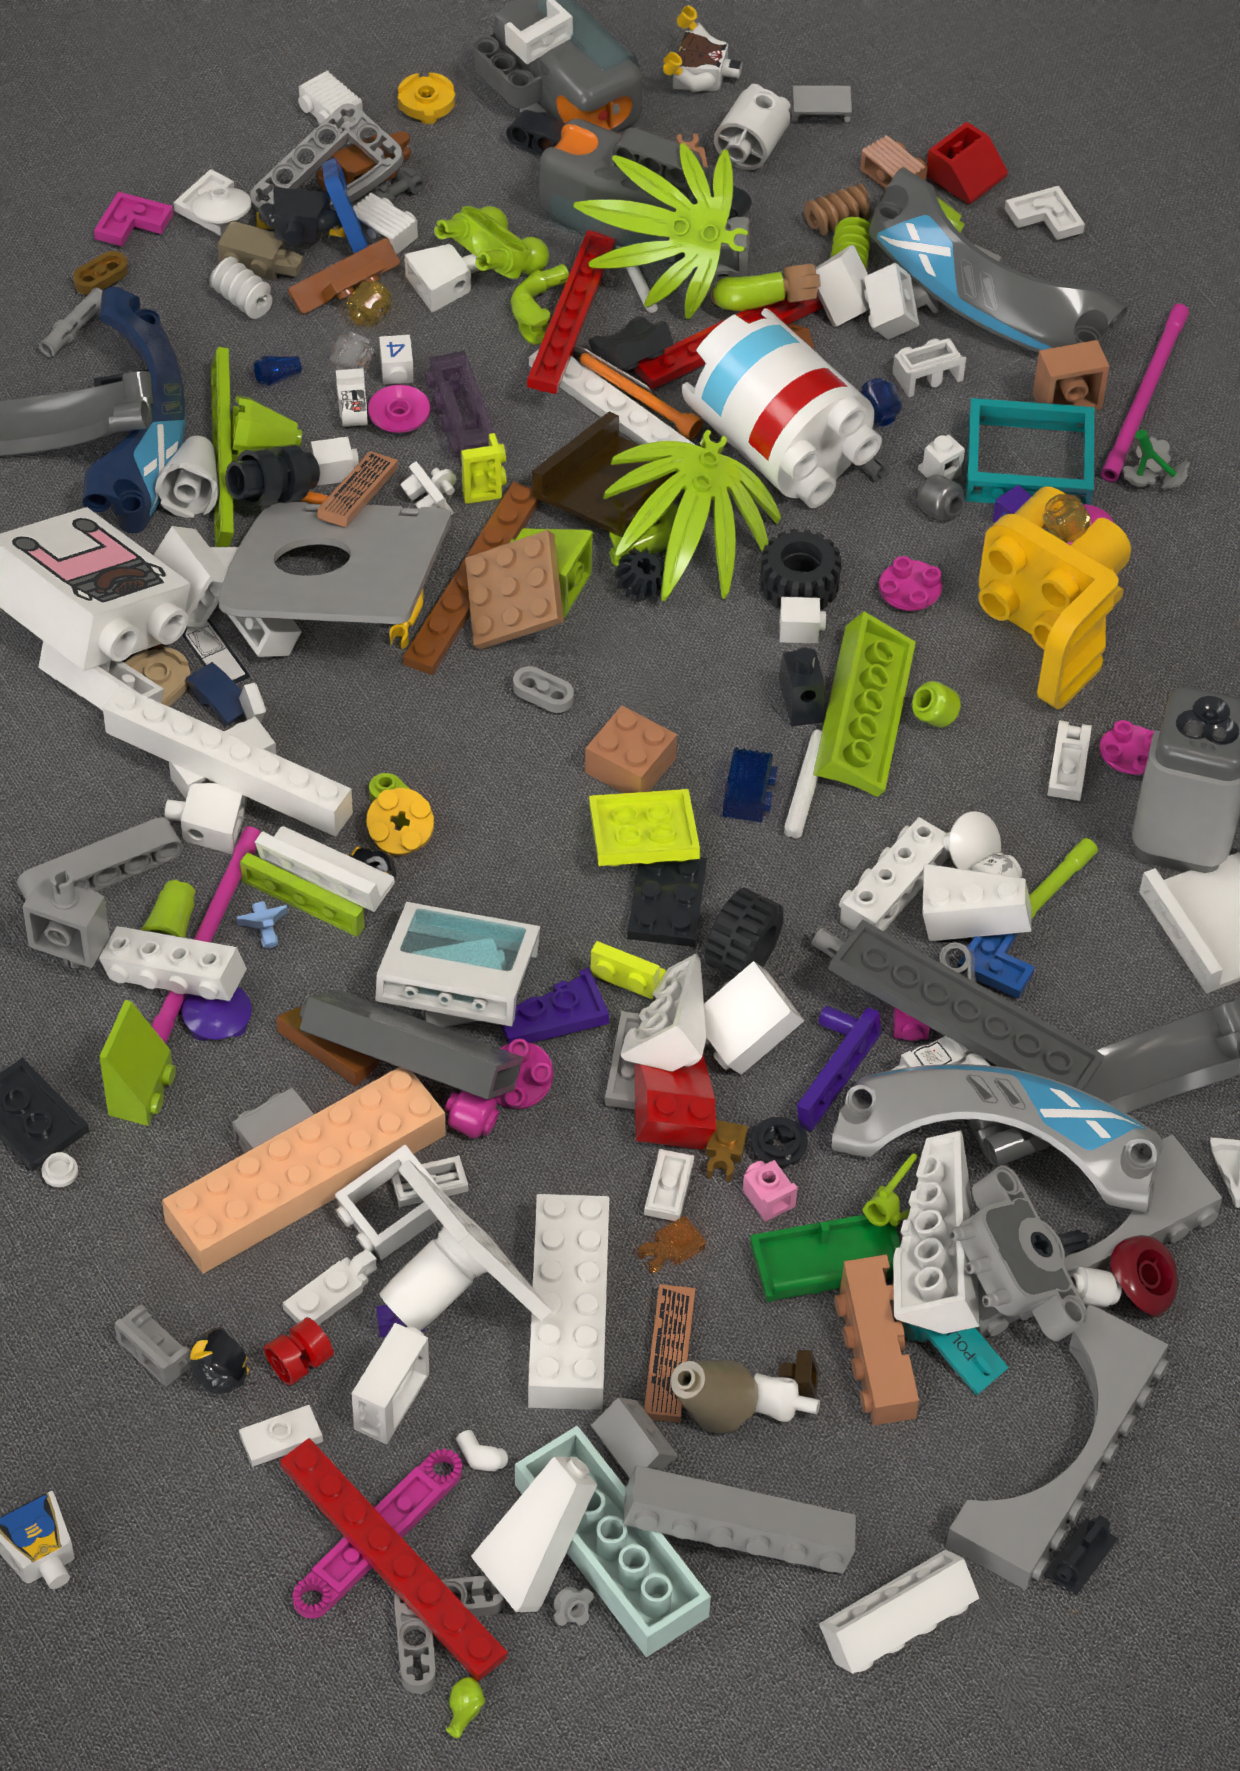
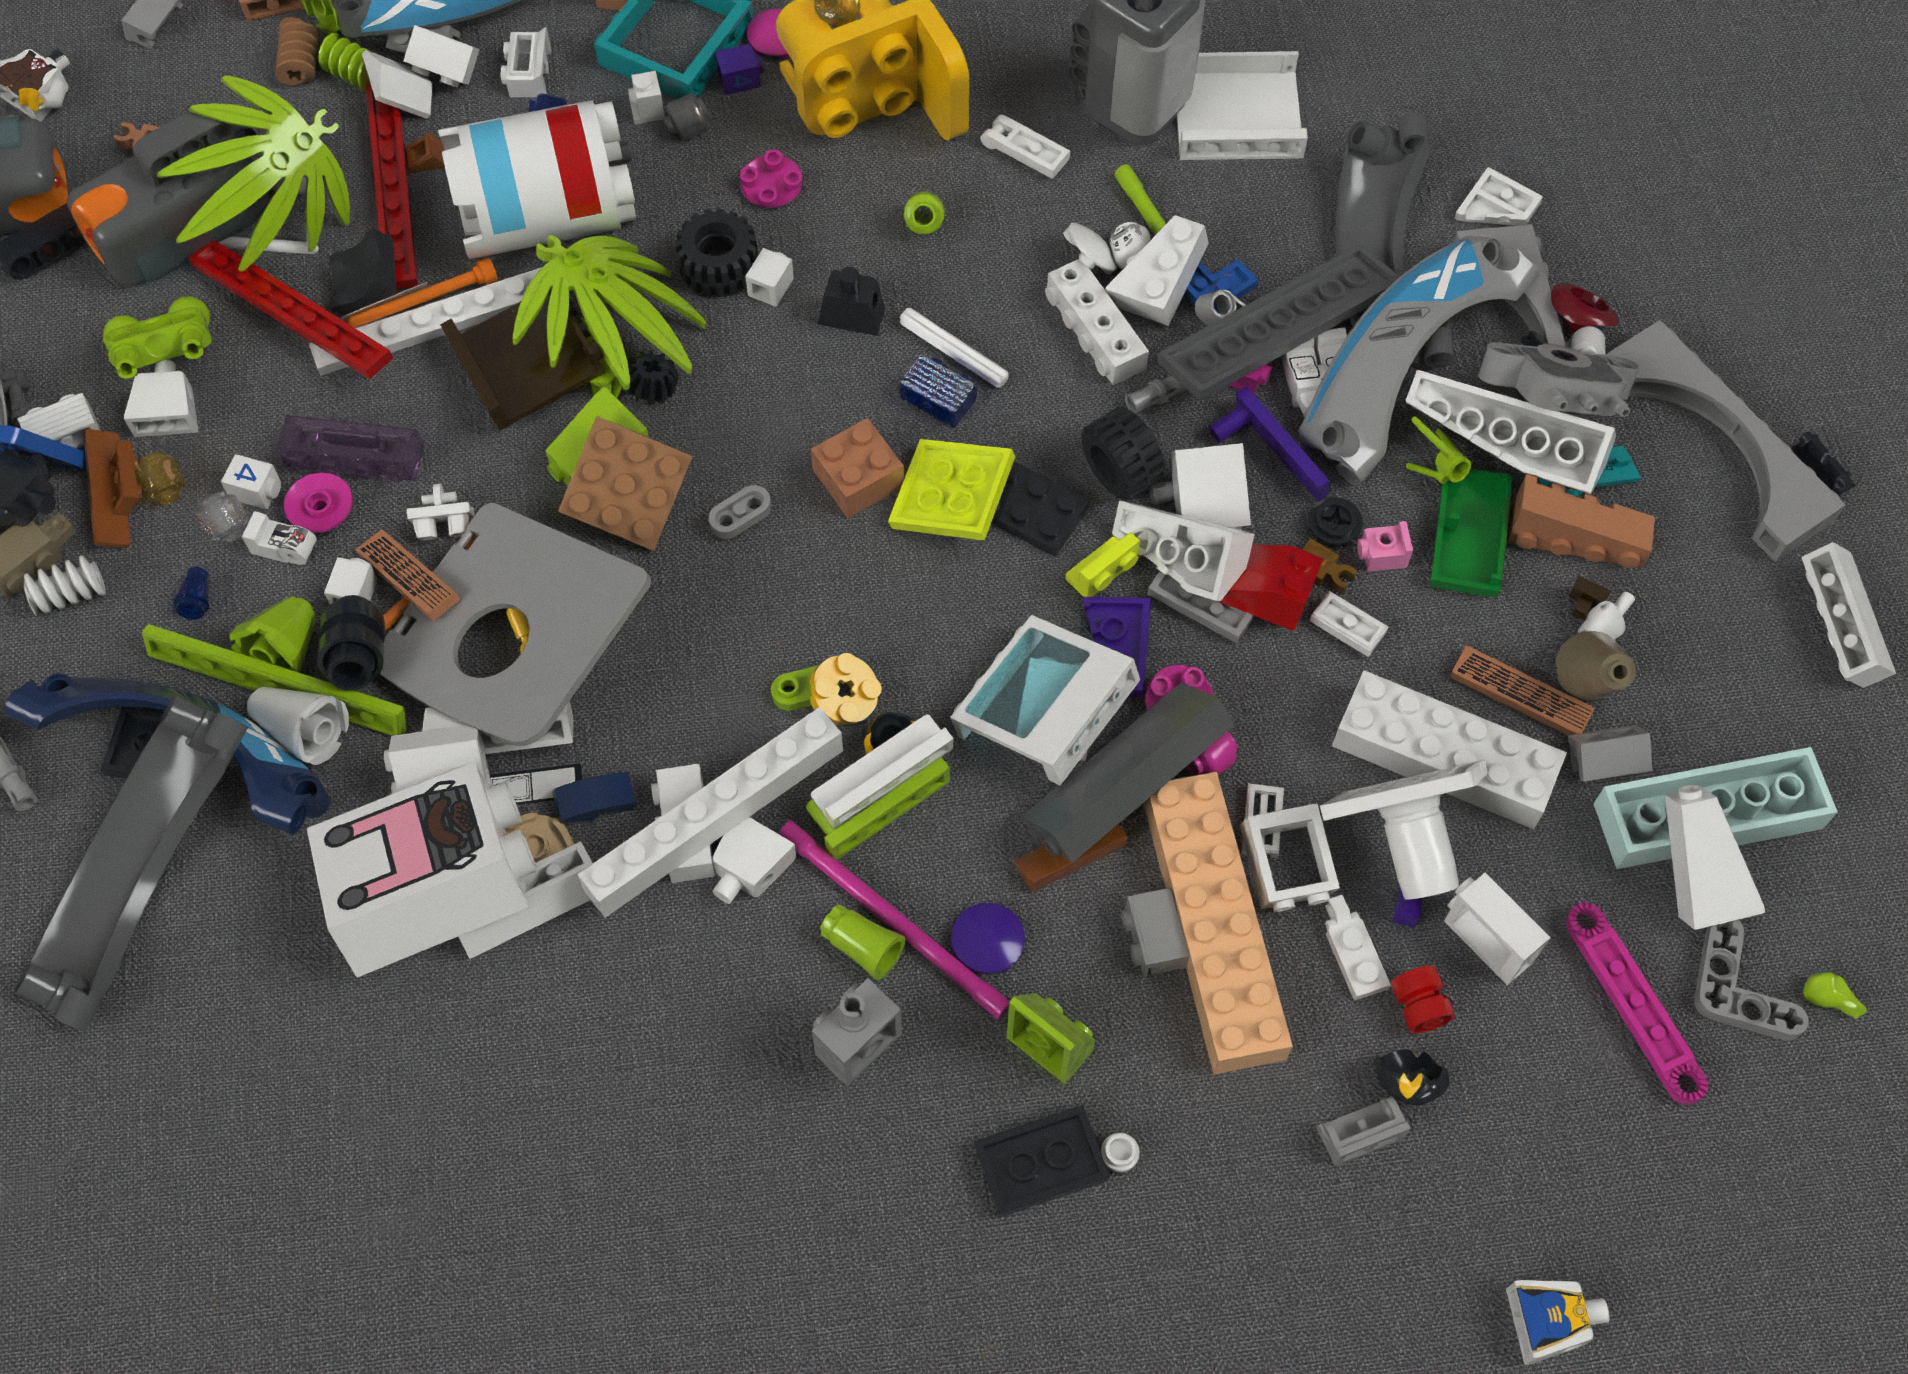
camera: 65 degrees left, 10 degrees up
(112, 858) = (760, 986): light grey beam -> none
(173, 963) = (935, 950): white brick -> none
(252, 702) = (635, 768): white tile -> none
(263, 920) = (901, 855): light blue piece -> none
(279, 1435) = (1499, 1051): white plate -> none
(394, 1560) = (1675, 997): red plate -> none
(454, 605) = (544, 499): dark orange plate -> none
(480, 1456) = (1579, 887): white arm -> none
(483, 472) = (453, 454): neon yellow bracket -> none
(529, 315) = (262, 347): lime piece -> none
(566, 1600) = (1762, 866): light grey plate -> none
(675, 1241) = (1408, 643): clear orange plate -> none
(739, 1519) = (1738, 698): light grey brick -> none
(753, 127) = (153, 72): white cylinder -> none
(762, 290) = (363, 155): lime piece -> none
(865, 705) = (902, 271): lime arch -> none
(1126, 747) = (1035, 98): dark pink dish -> none

